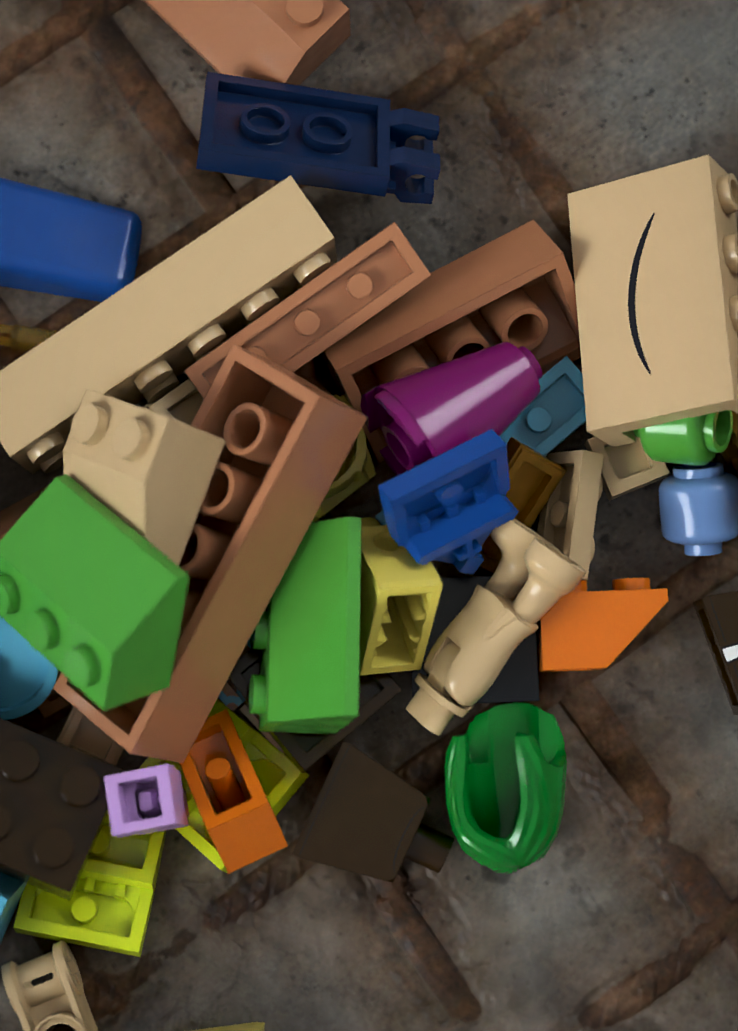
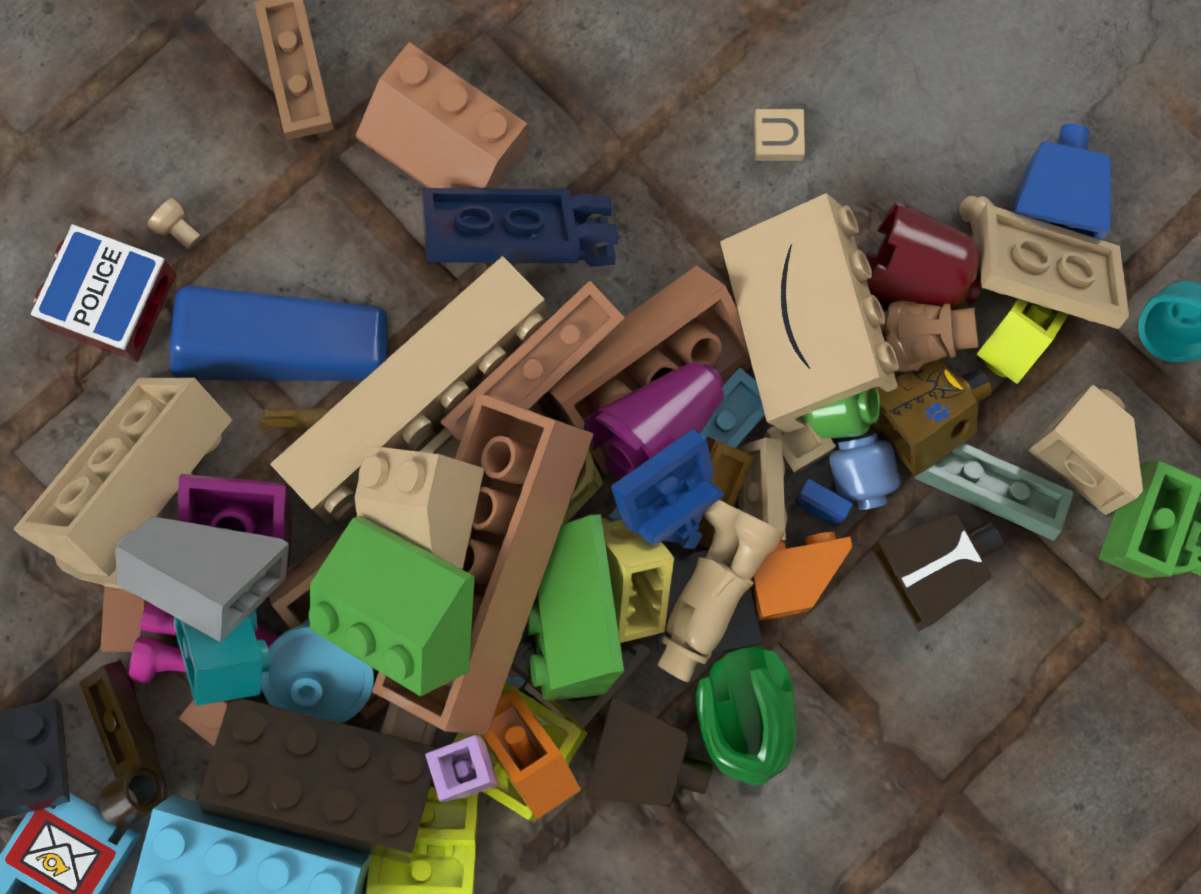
camera: 15 degrees left, 5 degrees down
(642, 540) = (823, 503): none -> blue tile
(665, 67) = (779, 134): none -> tan tile

